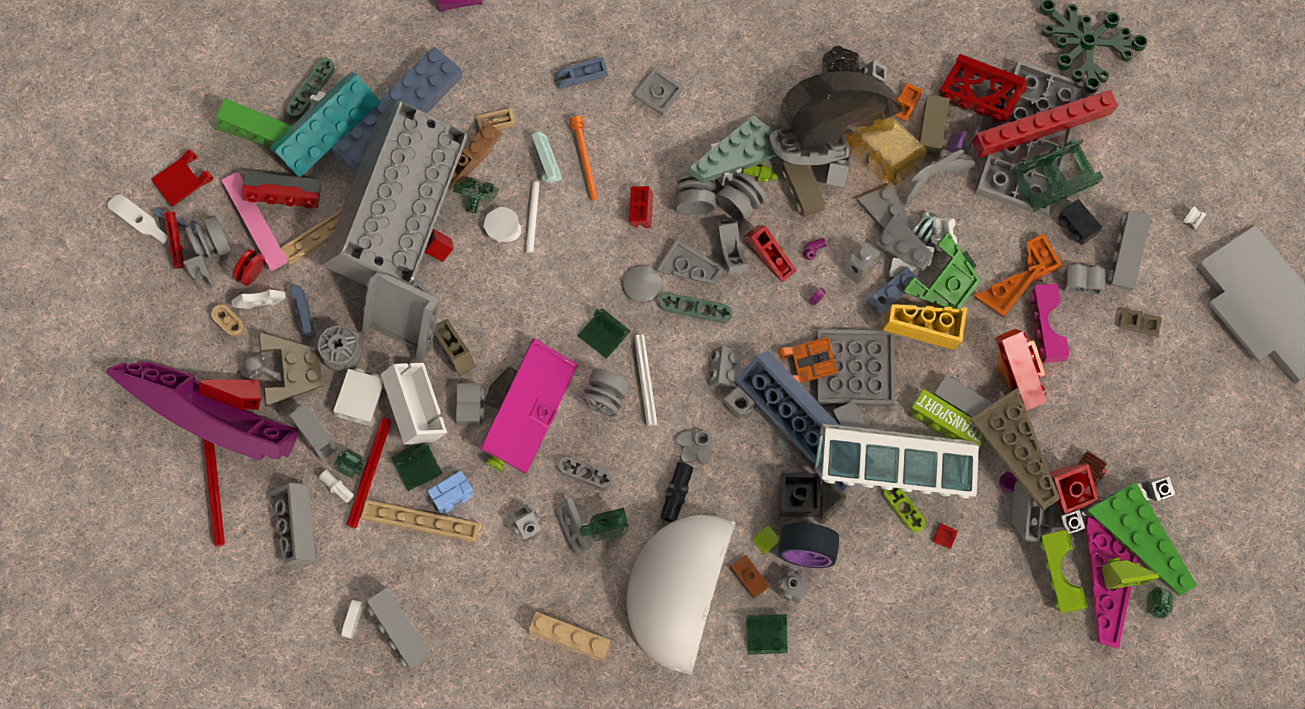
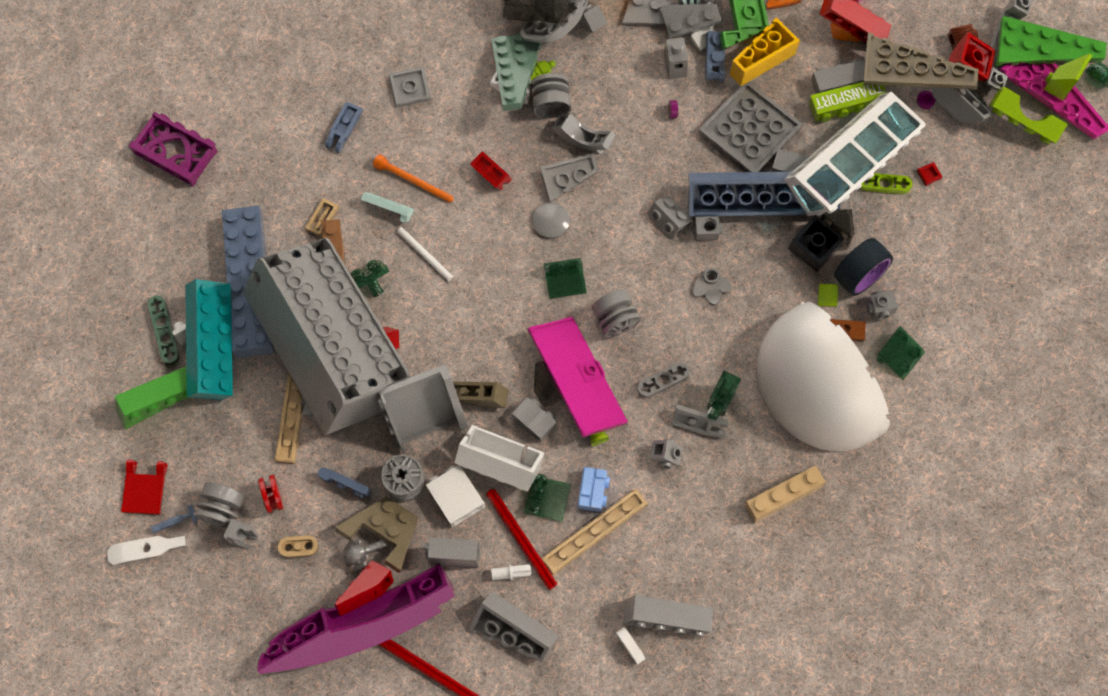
camera: 45 degrees left, 0 degrees up
(175, 246) = (172, 523): red pin -> none
(248, 301) = (298, 516): white tile -> none
(255, 223) = (234, 459): bright pink tile -> none
(281, 190) = (229, 417): red piece -> none
(349, 463) = (501, 547): clear green head -> none
(502, 225) = (412, 279): white hat -> none
(645, 380) = (629, 279): white axle -> none
(676, 492) = (737, 327): black piece -> none
(694, 196) = (518, 125): light grey wheel -> none
(695, 310) = (602, 197): sand green beam -> none
(769, 251) = (606, 112): red slope -> none
(803, 188) = (580, 51): dark tan brick -> none
(811, 248) = (631, 83): magenta arm -> none
(811, 359) = (718, 151): orange flag -> none

